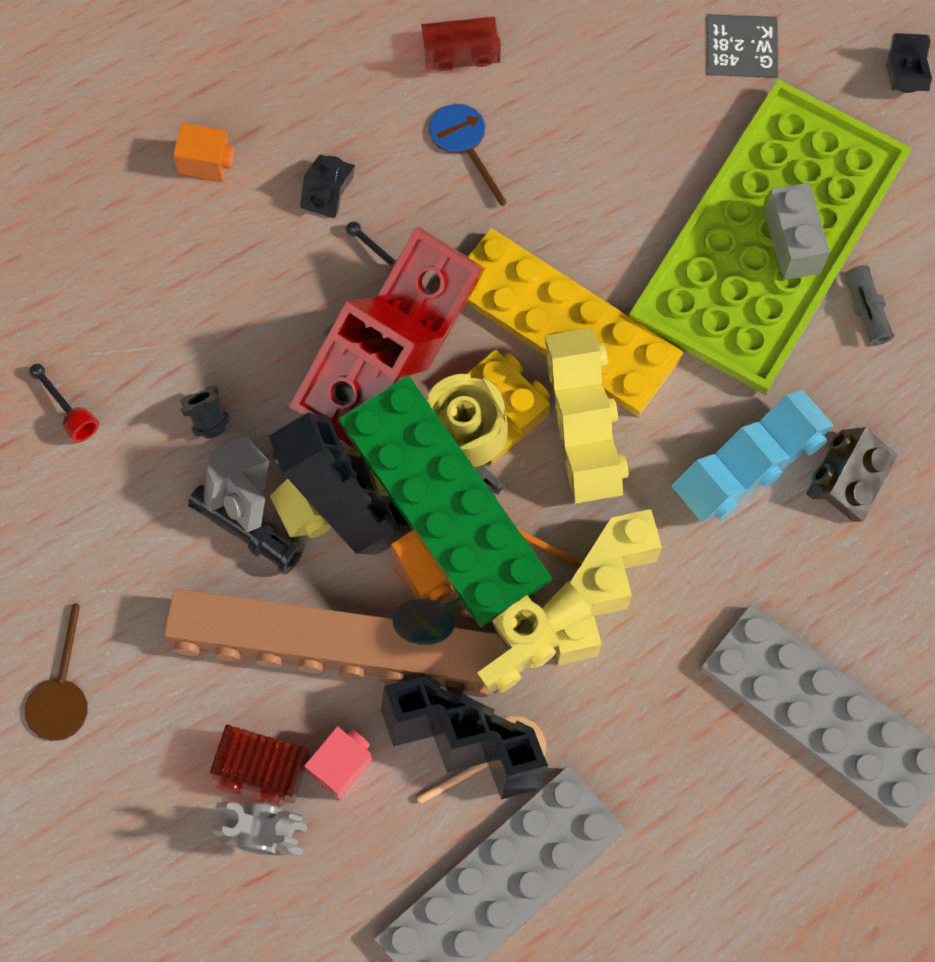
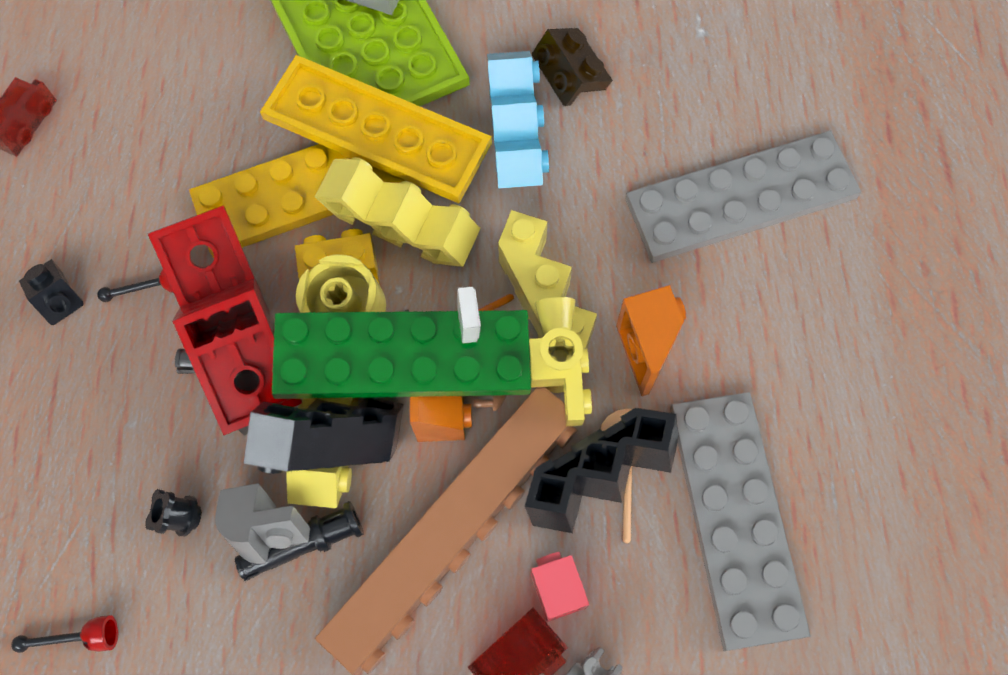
camera: 55 degrees left, 0 degrees up
(425, 620) = (487, 439): piece -> none
(460, 130) = (89, 164): blue piece -> none
(505, 528) = (468, 314): none -> white tile
(615, 705) = (648, 331): none -> orange slope
(653, 344) = (377, 128): none -> yellow plate

